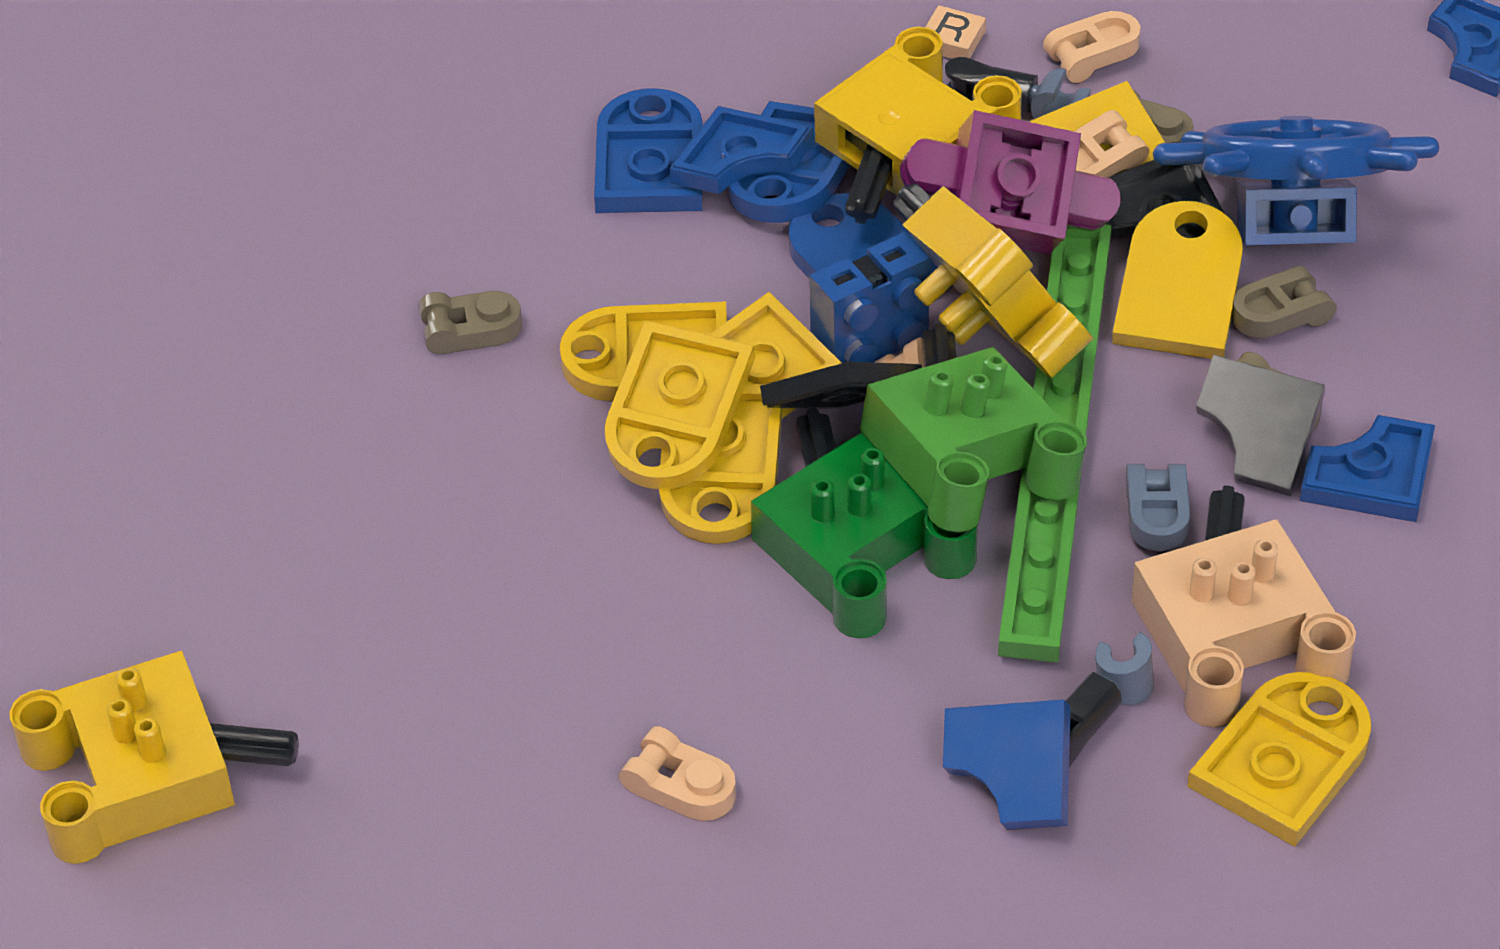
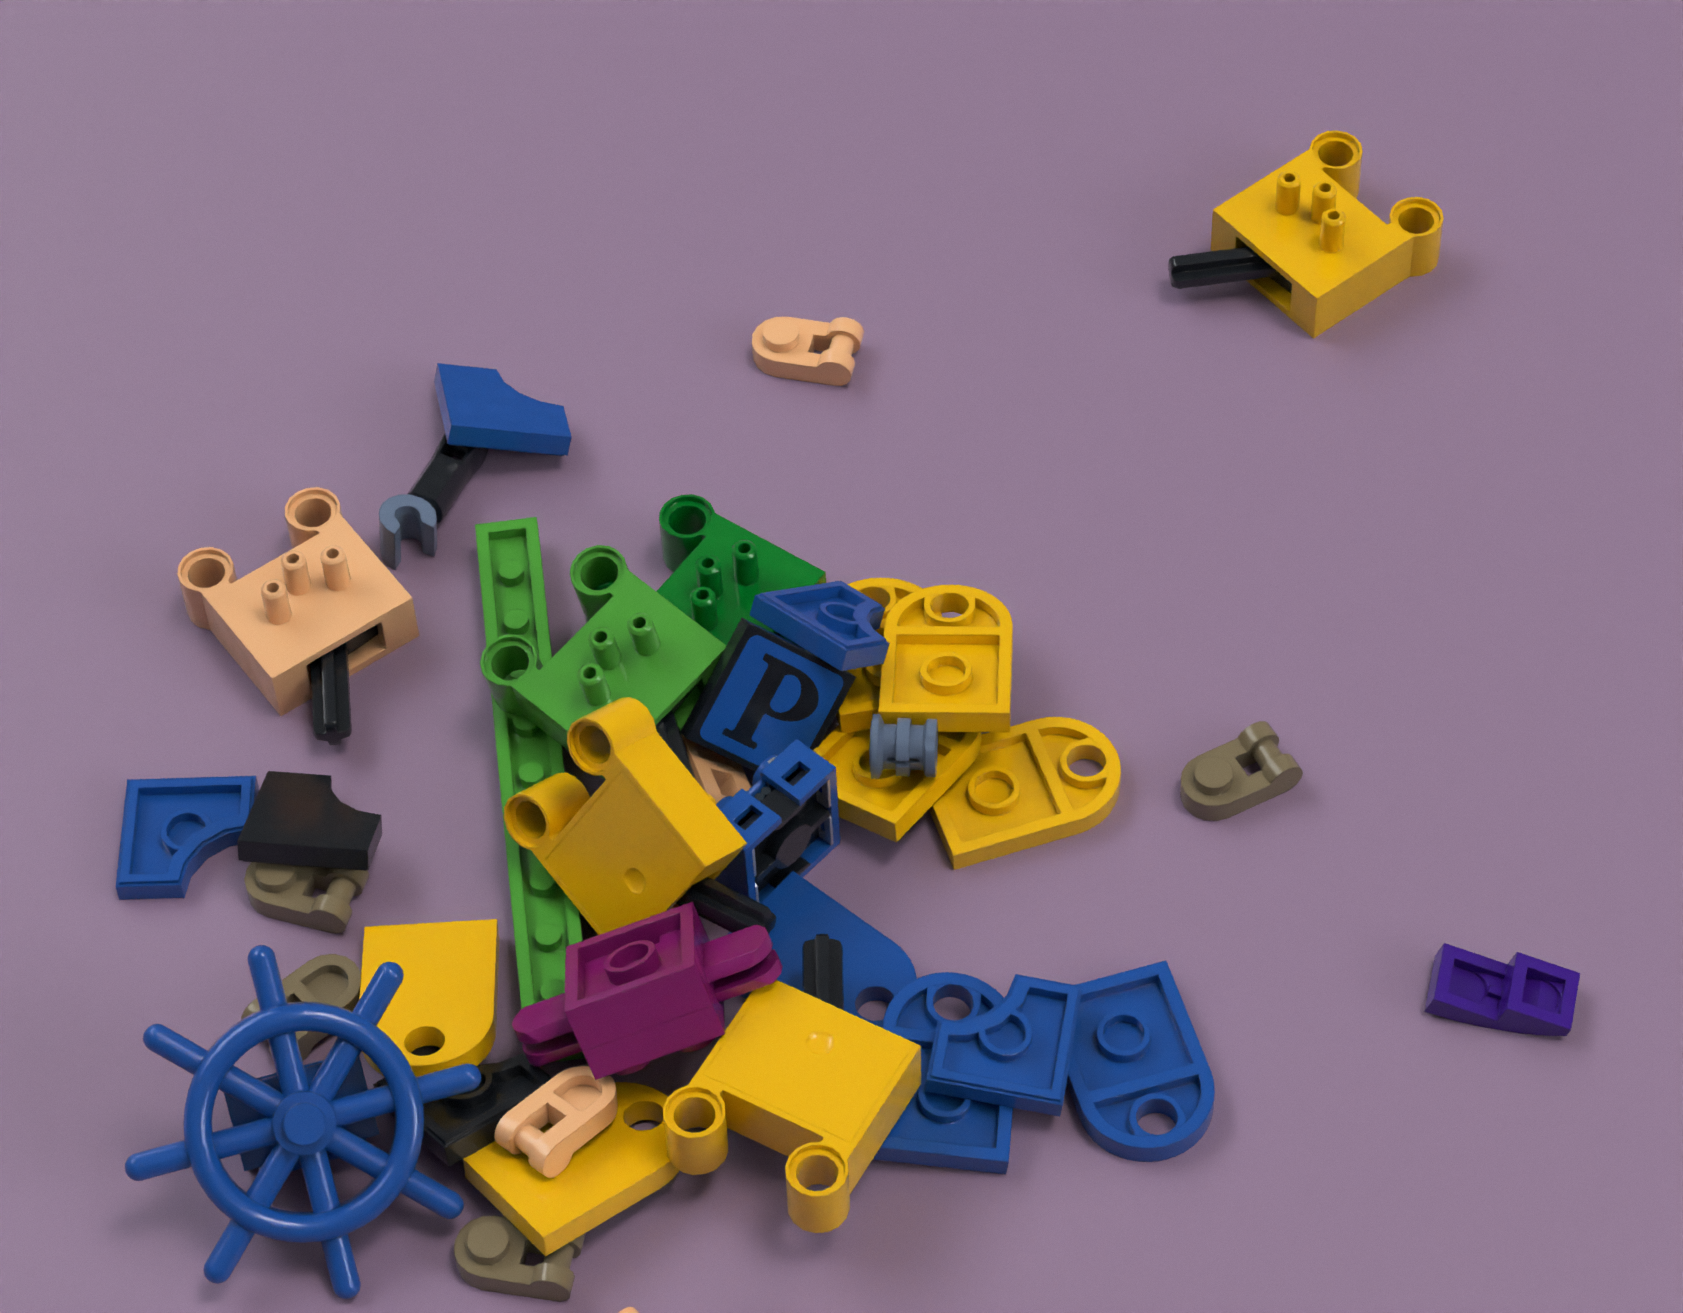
camera: 165 degrees right, 5 degrees up
(351, 138) = (1509, 997): none -> dark purple slope
(743, 326) = (903, 747): none -> sand blue bush
(771, 429) = (826, 621): none -> blue tile
(1035, 98) = (636, 1257): piece -> none
(1158, 505) = (401, 701): sand blue plate -> none
(1283, 760) = (239, 495): yellow tile -> none

